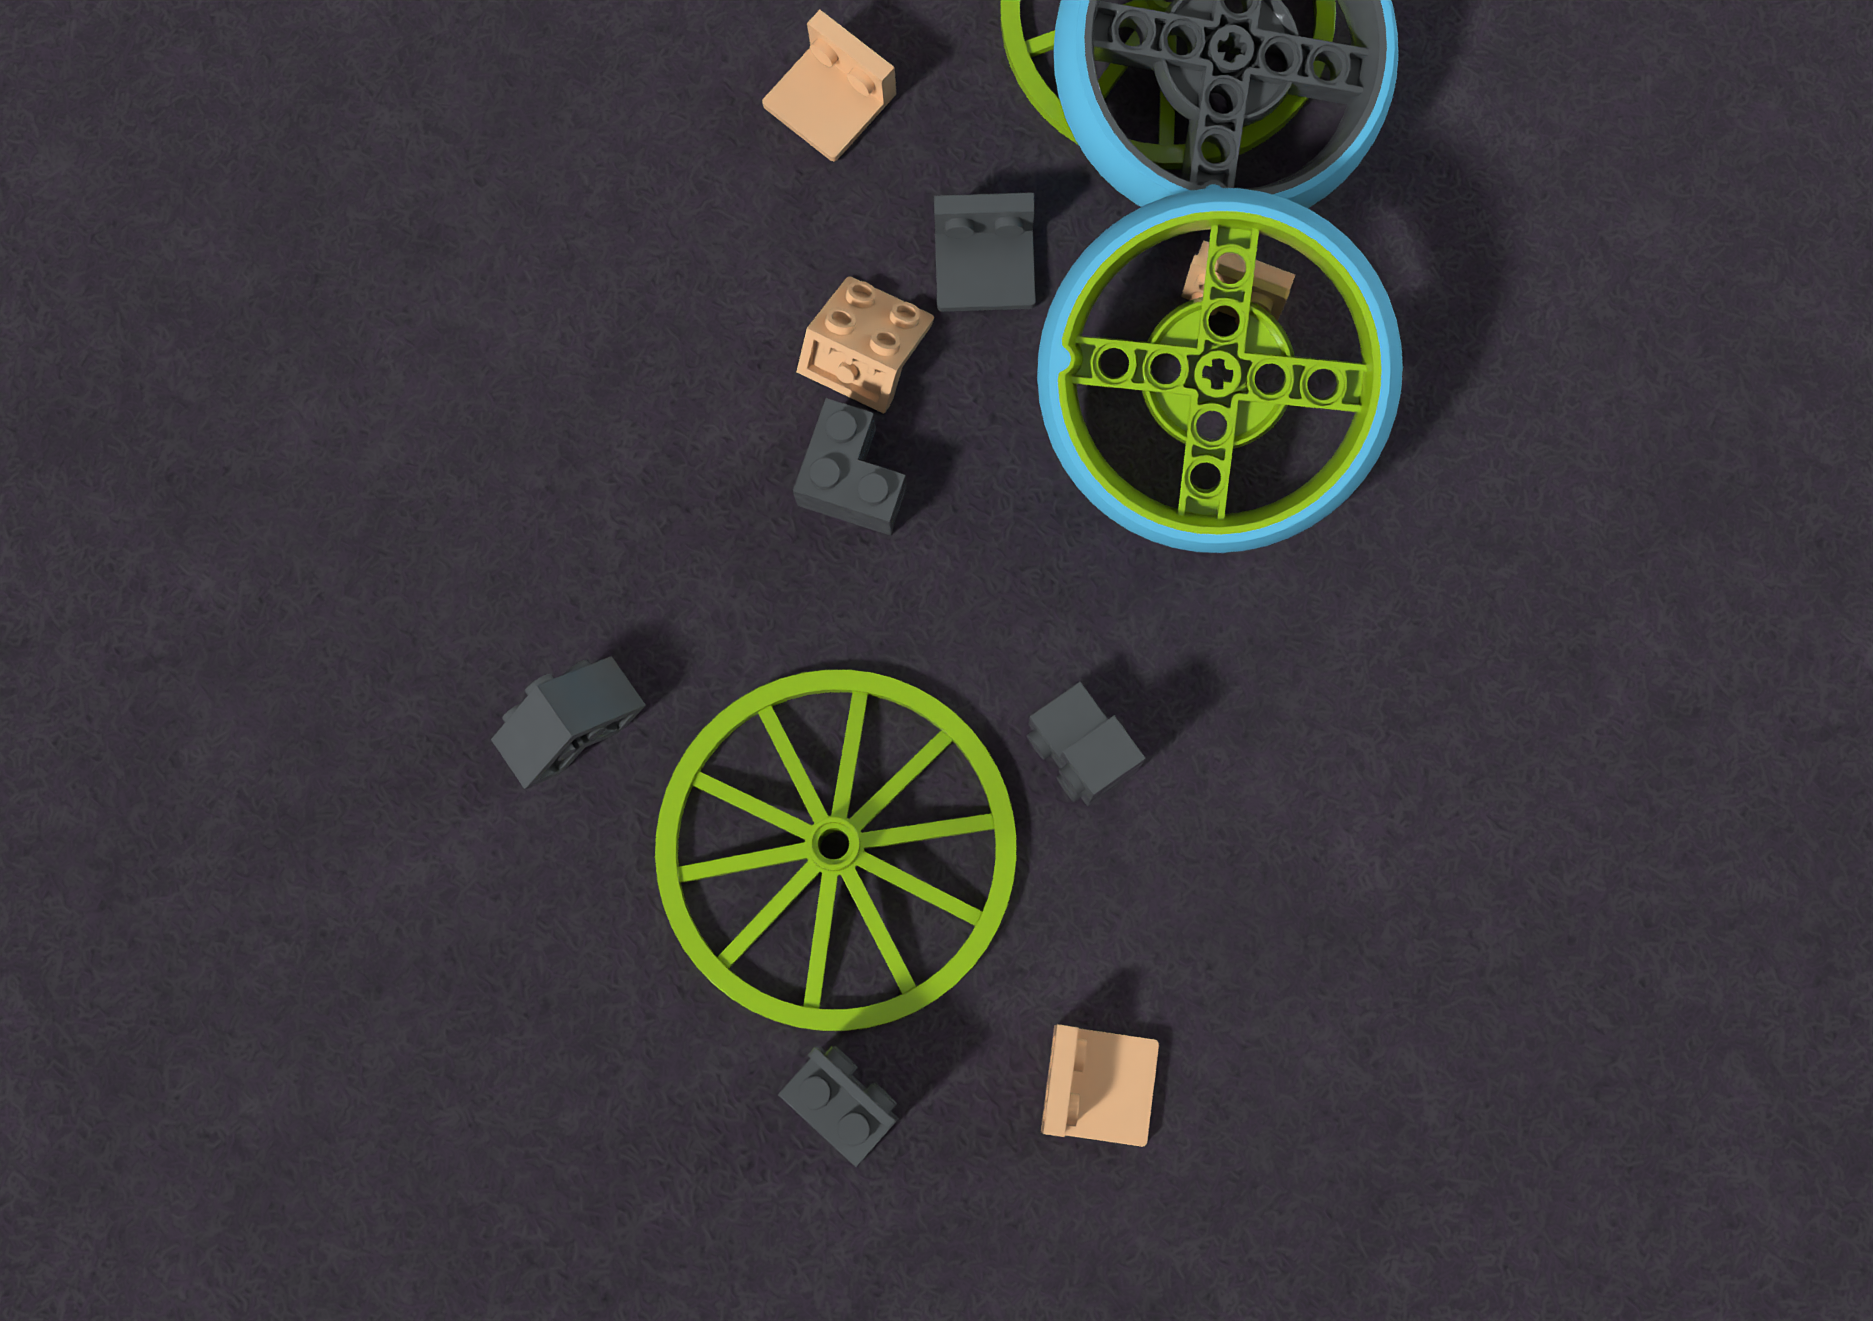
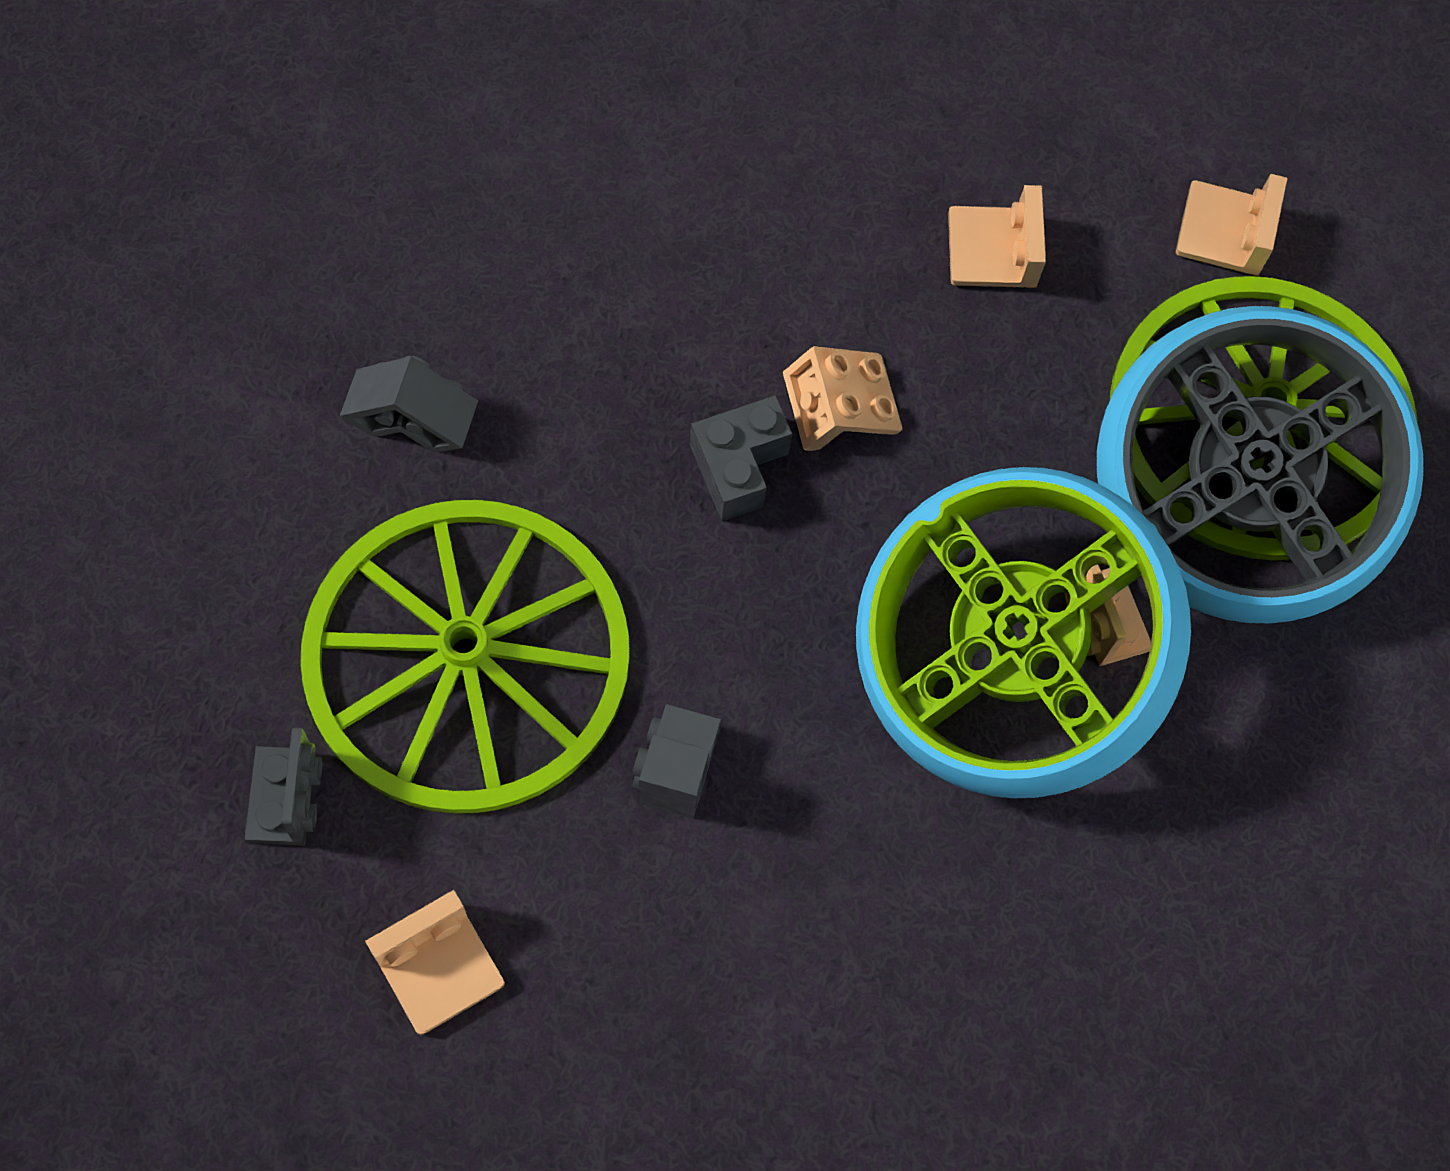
camera: 40 degrees right, 10 degrees down
(984, 252) = (976, 423): dark grey bracket -> none

